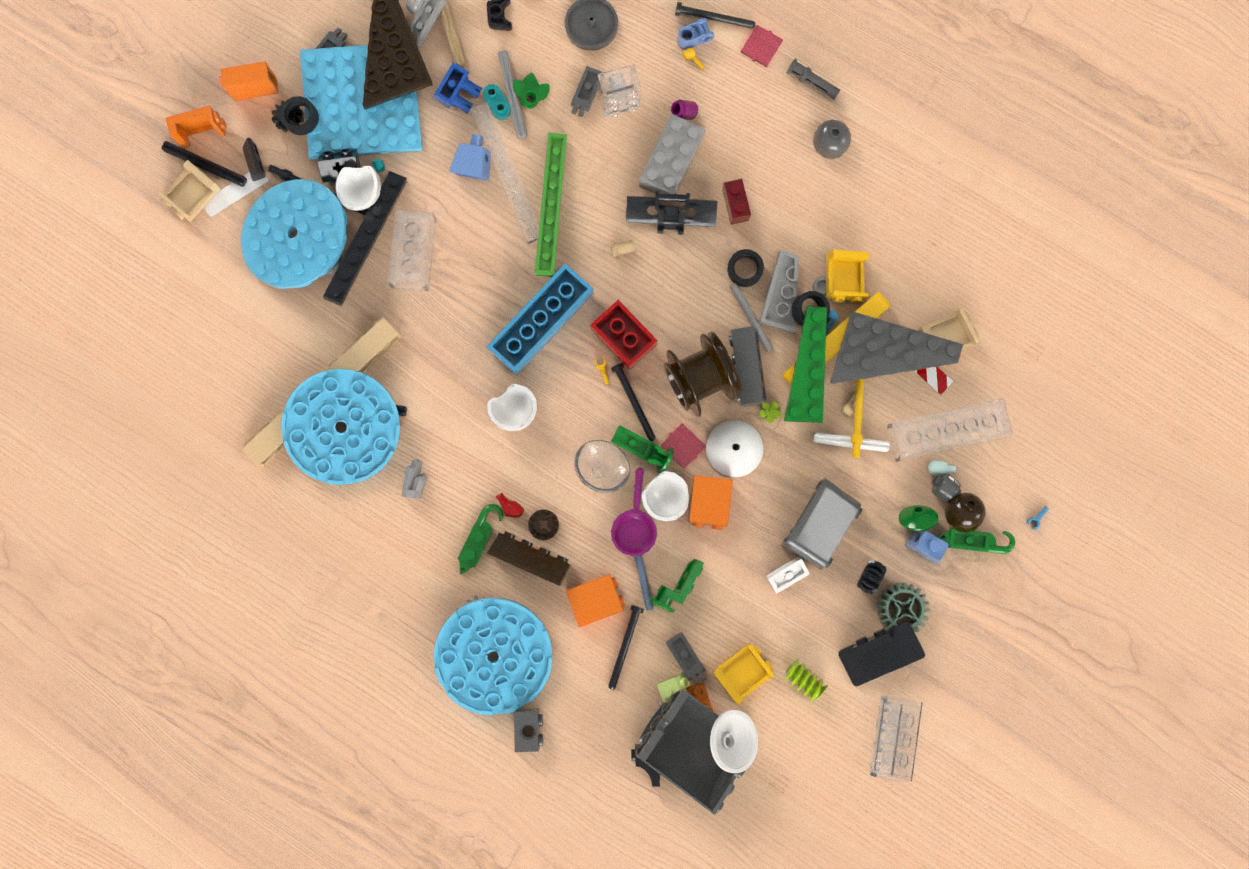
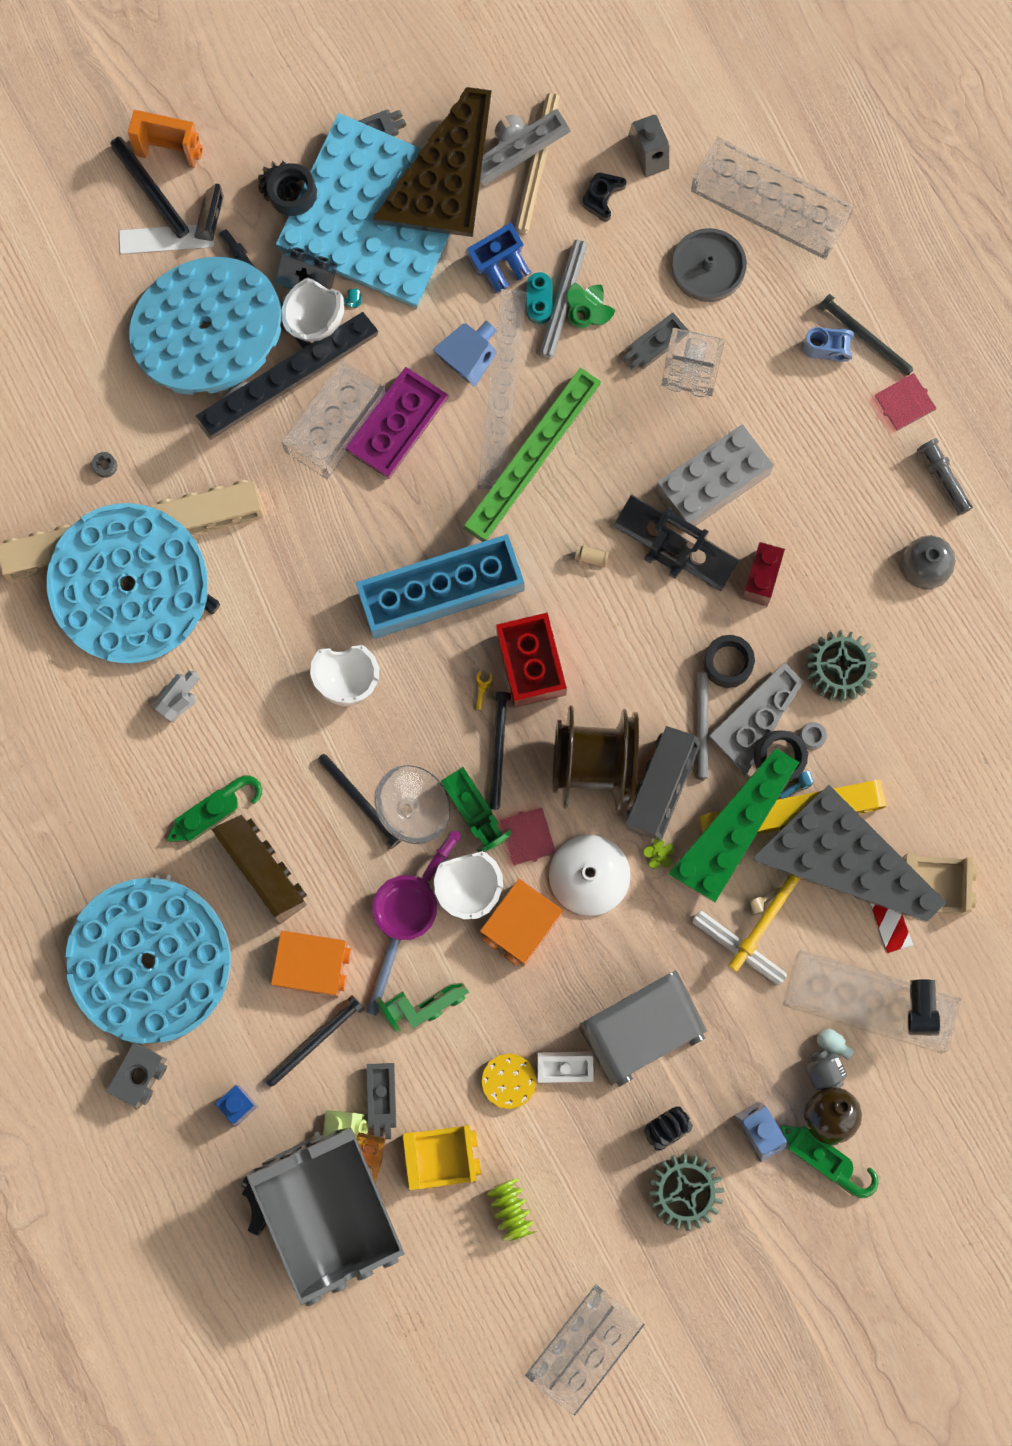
camera: 30 degrees right, 5 degrees down
(189, 193) = (112, 212): tan panel -> none
(249, 81) = (257, 118): orange brick -> none
(280, 353) = (109, 458): none -> dark grey bush
(452, 230) = (397, 423): none -> magenta plate
(510, 508) = (273, 794): red animal -> none
(534, 525) = (313, 841): dark brown gear -> none
(563, 480) = (357, 797): none -> black bar
(600, 713) = (236, 1105): none -> blue brick
(685, 109) = (763, 428): magenta brick -> none
(690, 53) = (808, 363): yellow hand -> none
(734, 741) = (387, 1229): white dish -> none
(757, 602) = (509, 1081): none -> yellow tile
(829, 224) = (852, 665): none -> sand green gear
(846, 275) = (849, 738): yellow panel -> none
(881, 653) = (625, 1230): black bracket -> none
(918, 518) = (768, 1088): green dish -> none
(988, 421) = (923, 1016): none -> black piece
(1037, 518) = (925, 1175): dark azure hand -> none

